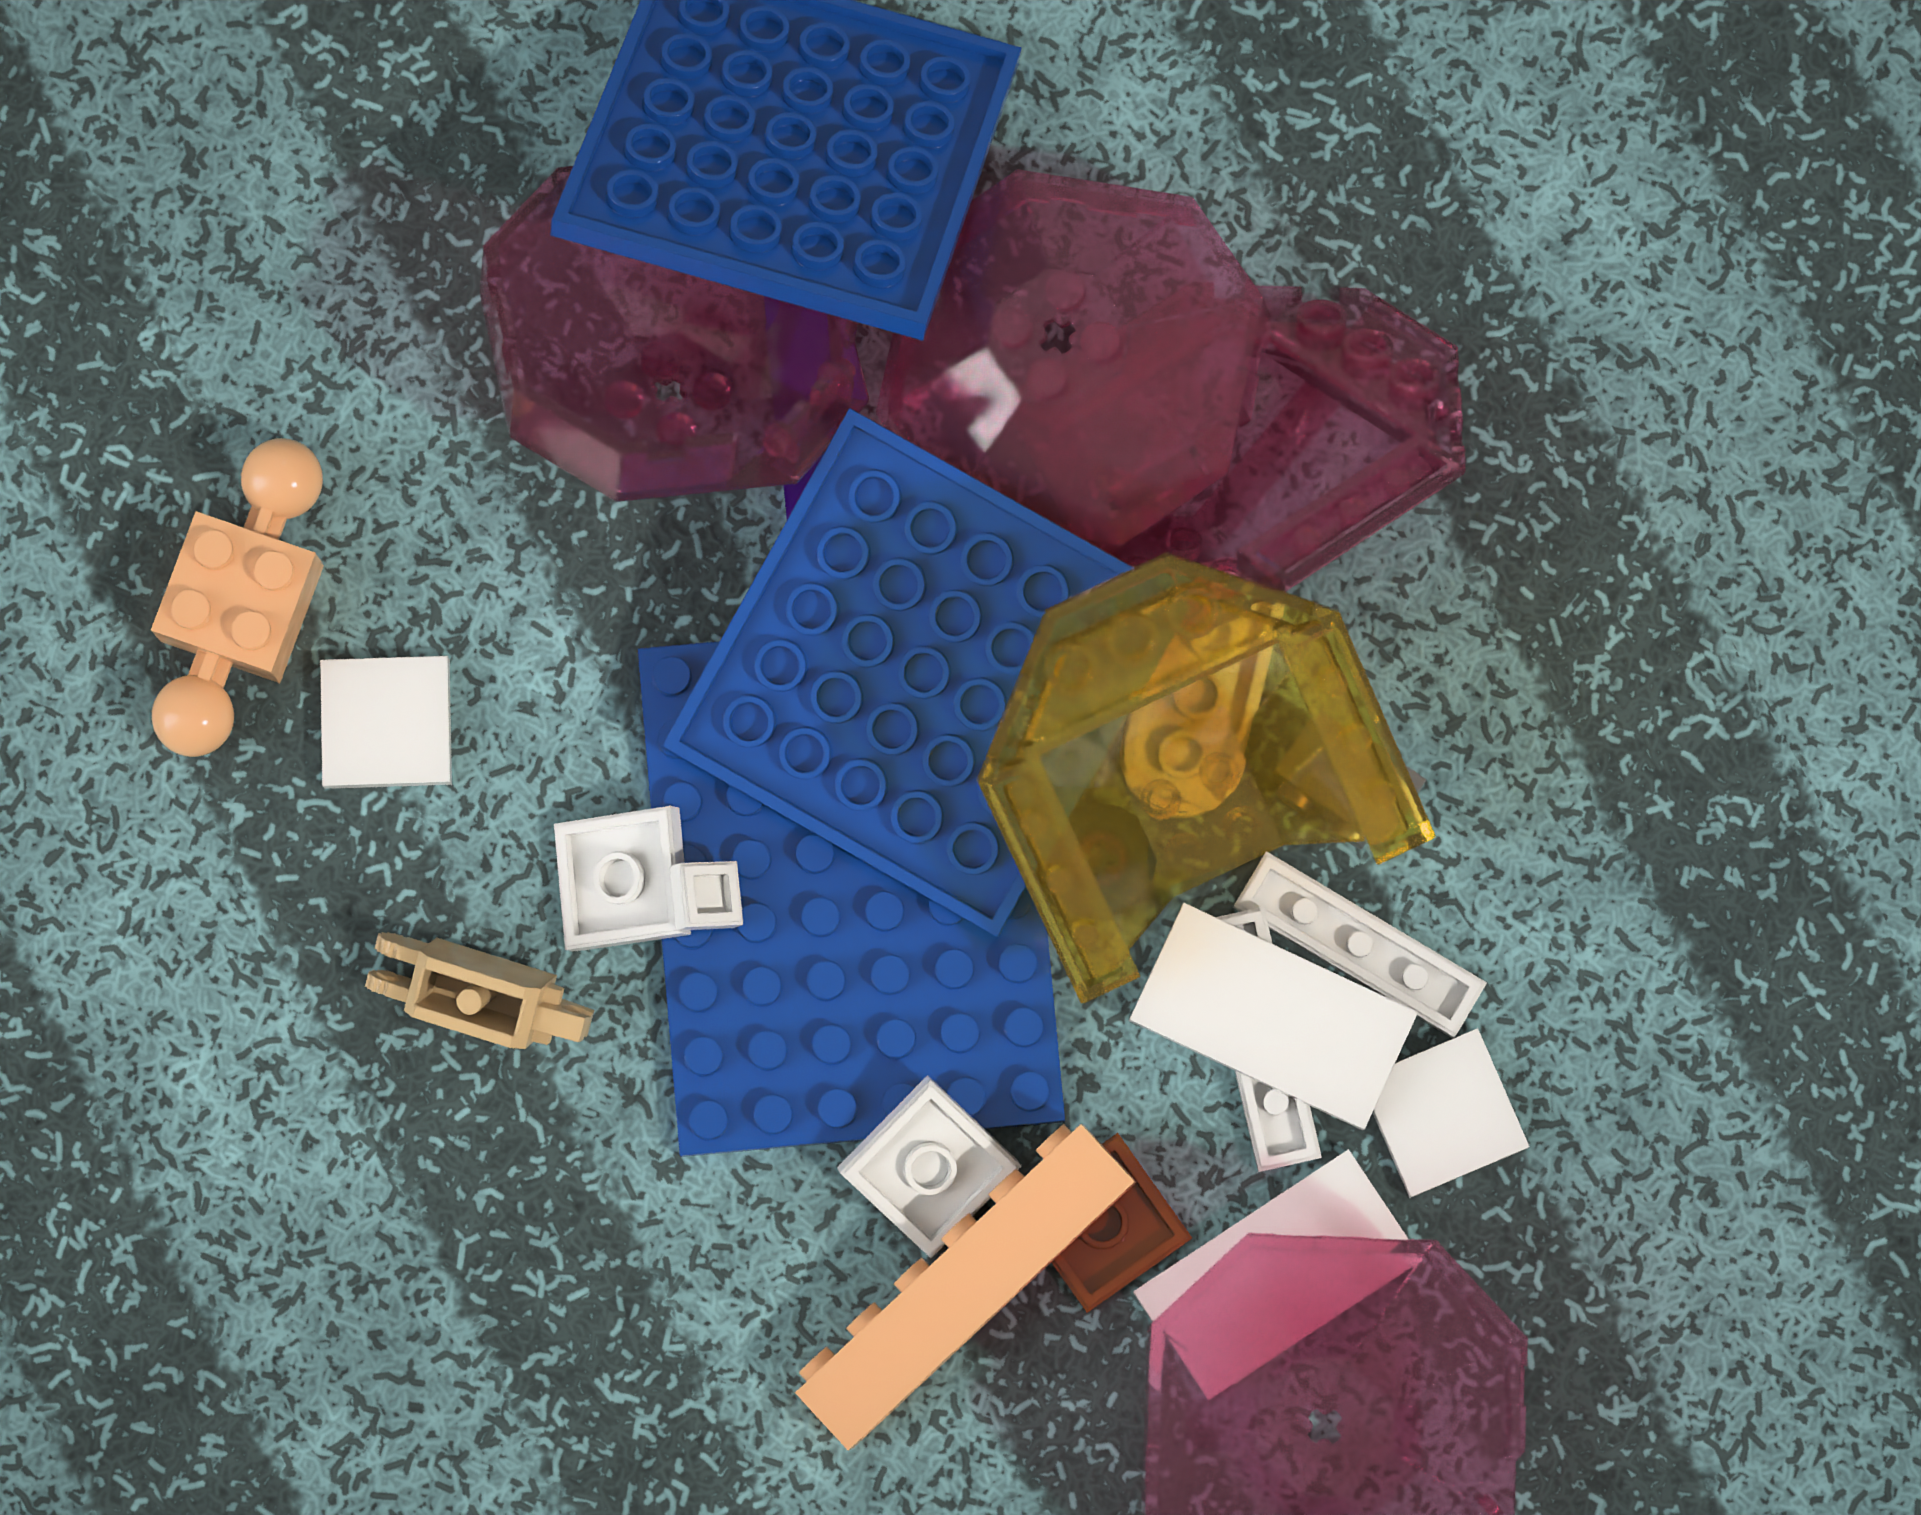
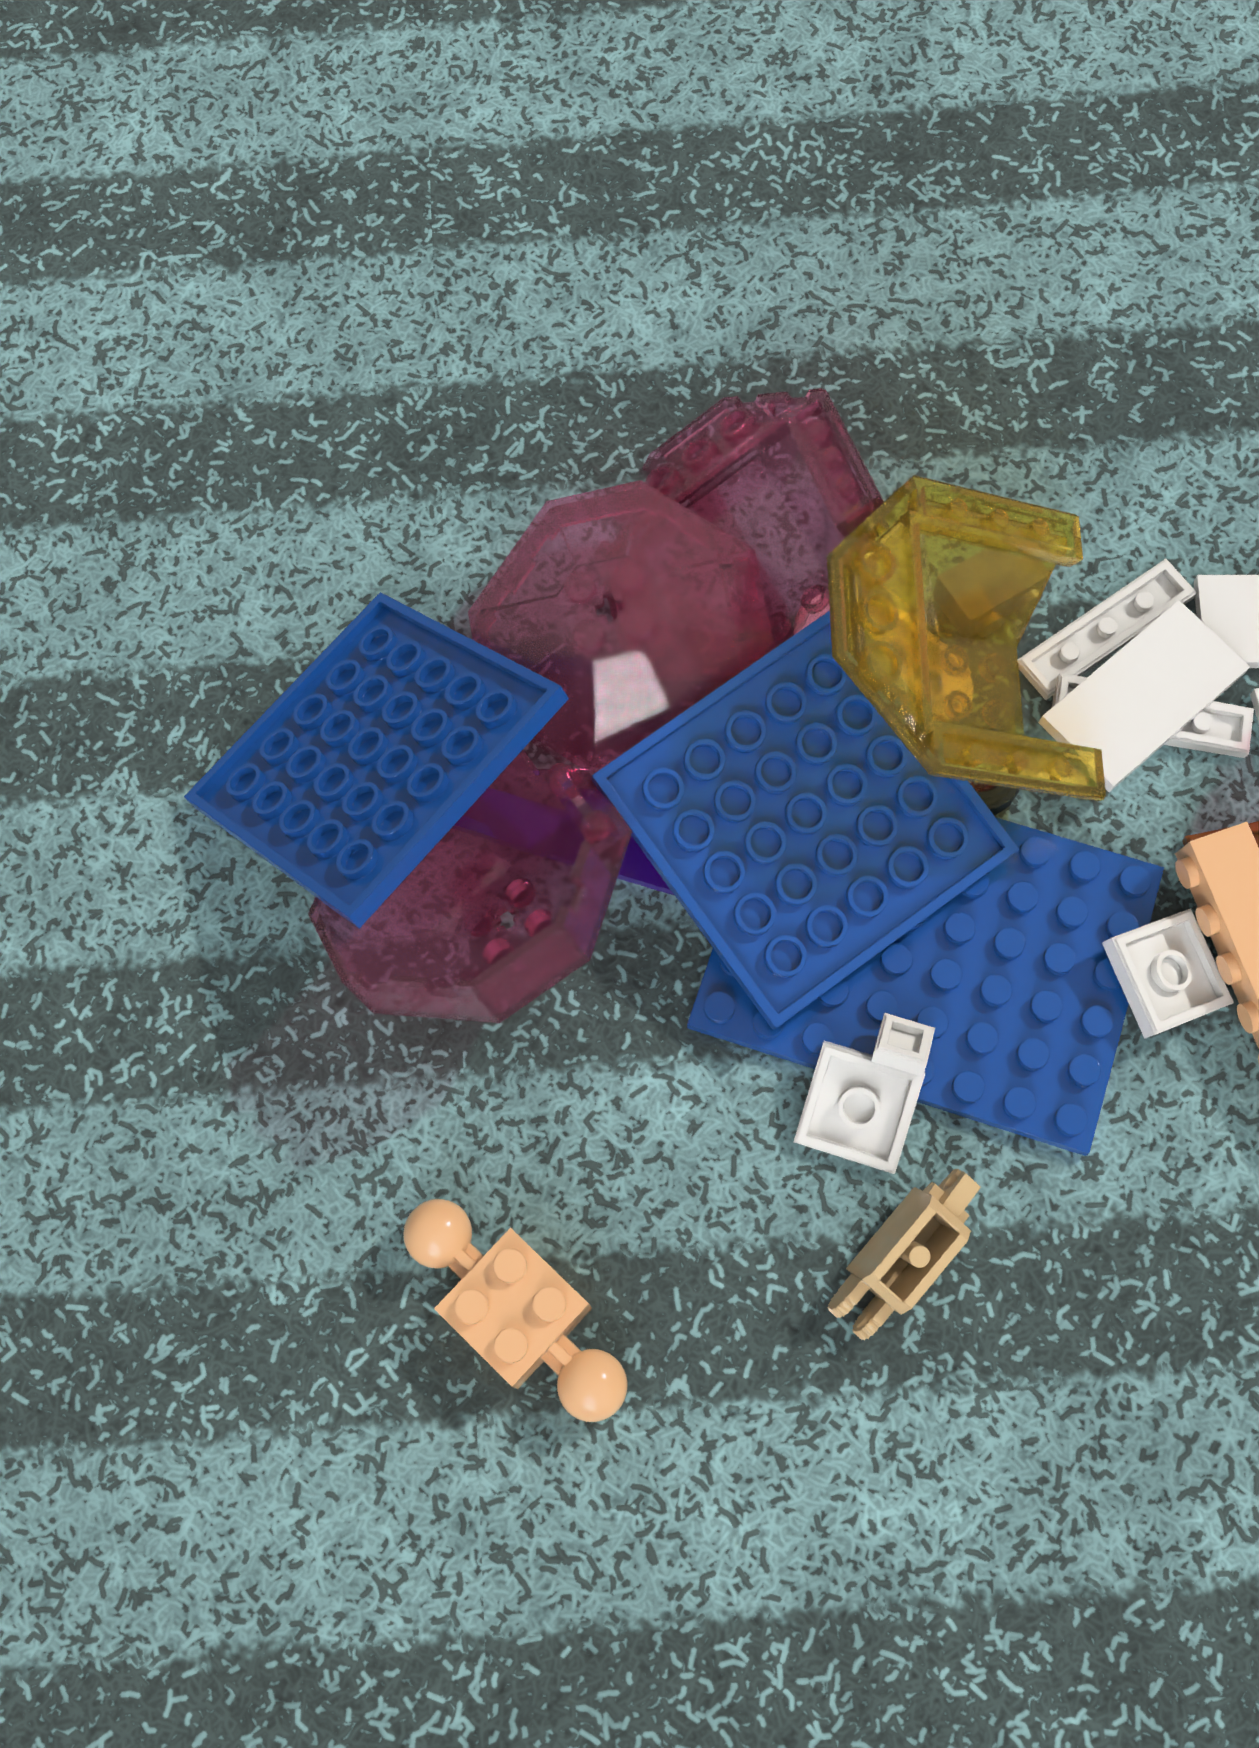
camera: 60 degrees left, 10 degrees down
(386, 722) = (659, 1237): white tile -> none

